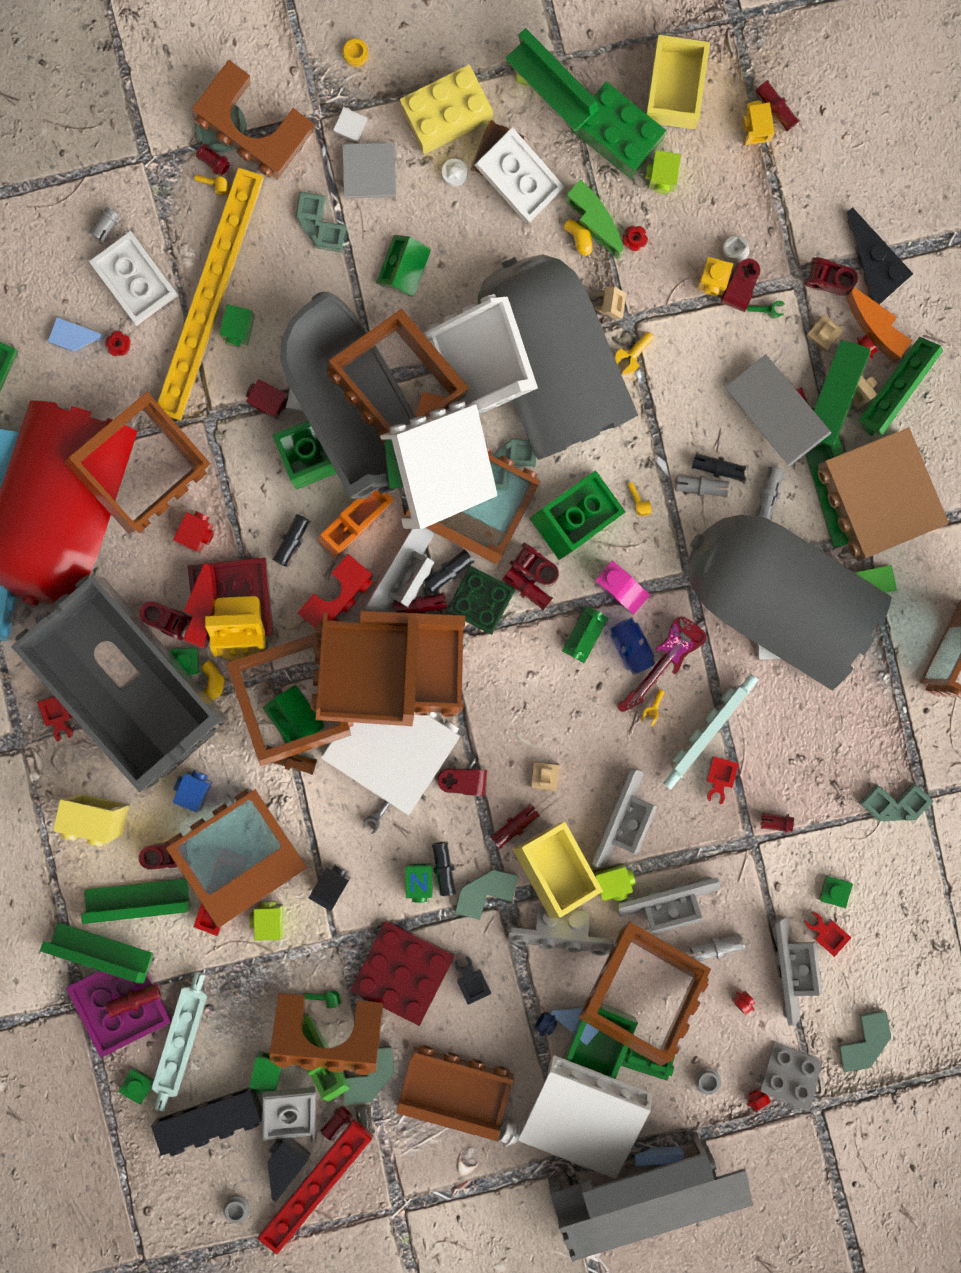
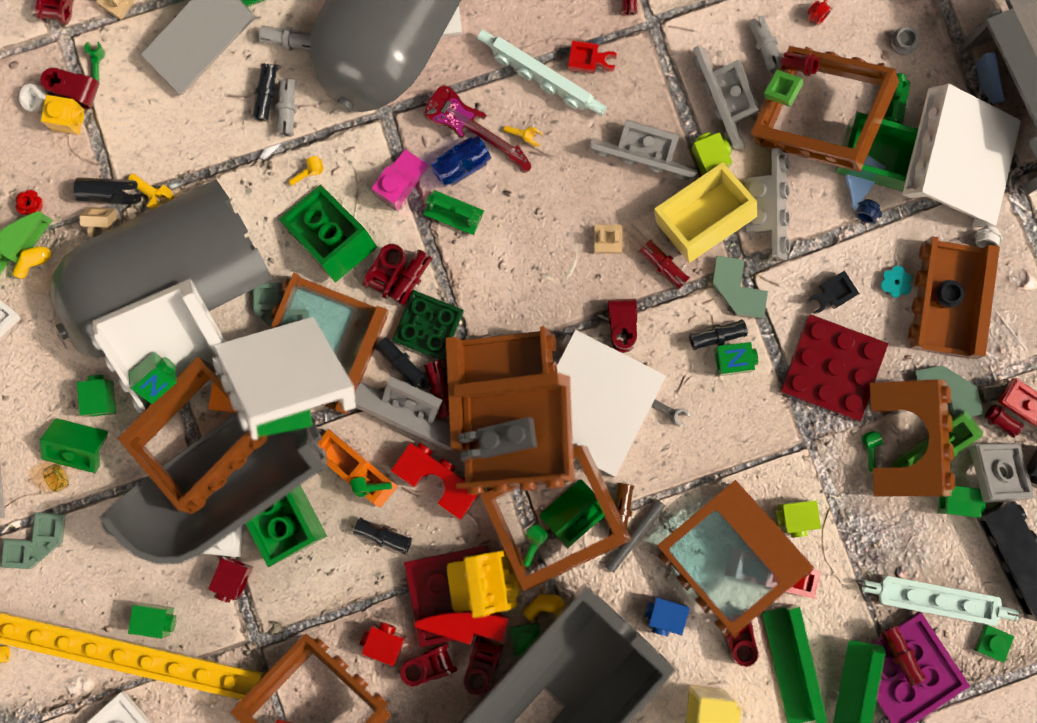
camera: 95 degrees left, 5 degrees down
(170, 572) = (429, 665): none -> dark red piece
(268, 771) = (635, 535): none -> dark grey bar
(273, 680) = (537, 536): none -> green hand
(330, 886) = (753, 452): black slope -> none
(335, 524) = (361, 489): none -> green hand
(362, 657) = (500, 439): none -> dark grey hinge
(375, 247) = (56, 478): none -> clear yellow tile
(445, 289) = (96, 396): none -> green brick
(453, 345) = (153, 377): none -> green brick
(459, 1088) = (949, 293): none -> black plate
(478, 1048) = (896, 274): none -> teal plant
(638, 311) = (105, 191): none -> black piece
(667, 957) = (783, 88): none -> bright green plate
(690, 974) = (802, 63): none -> dark red pin

